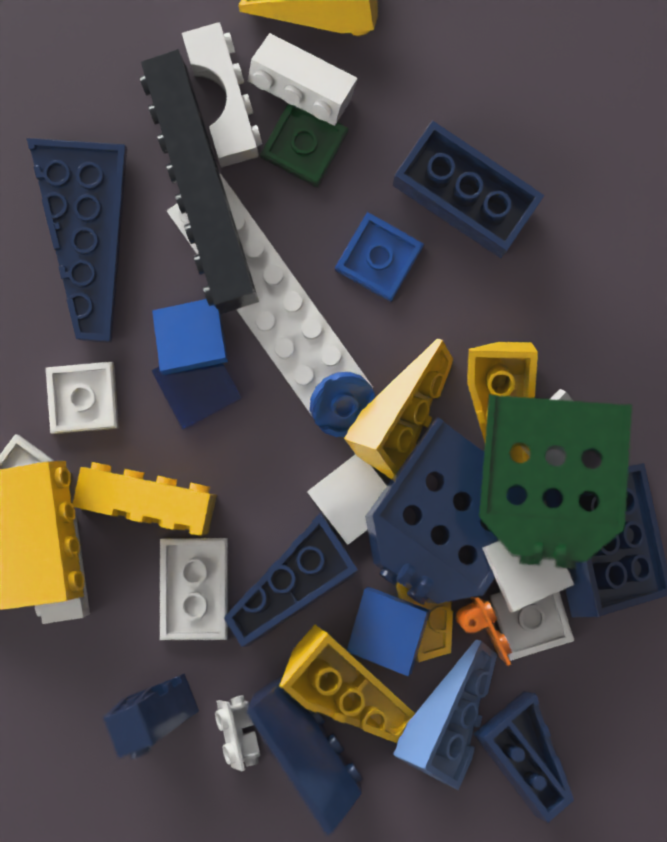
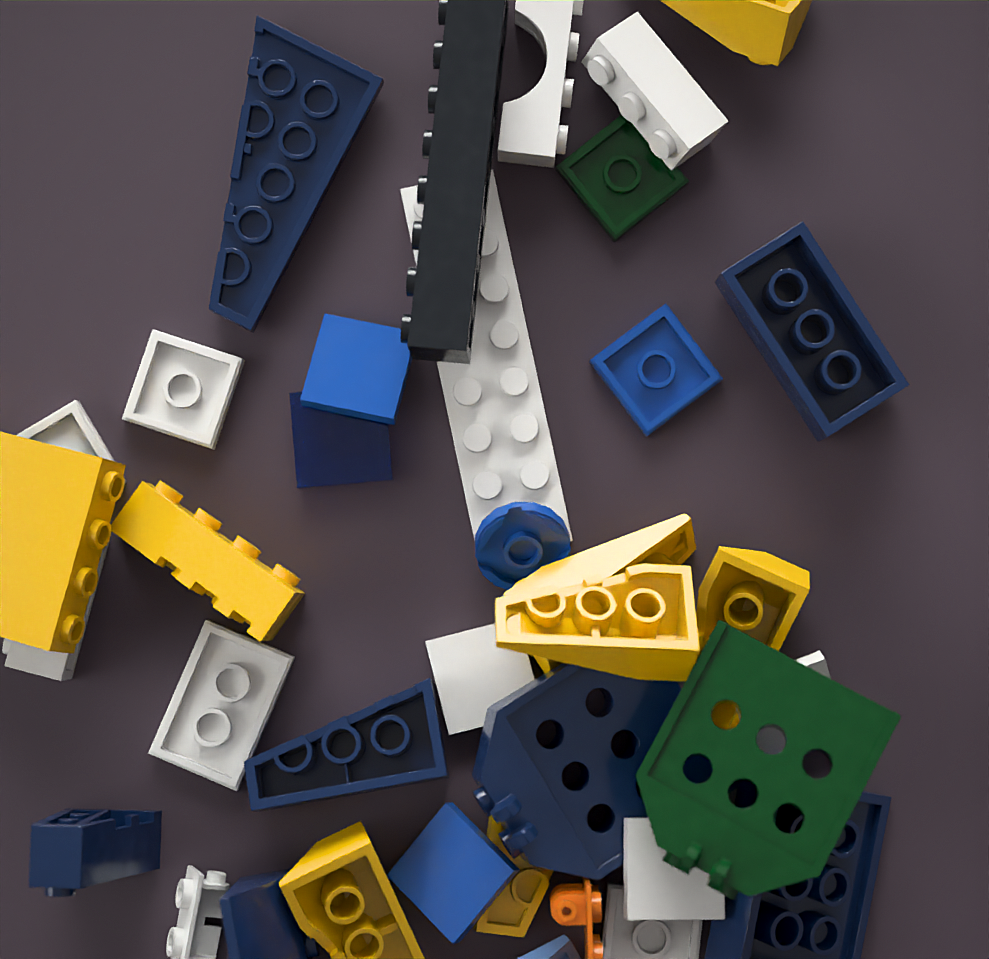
camera: 30 degrees right, 0 degrees up
(427, 425) = (618, 624): none -> yellow wedge

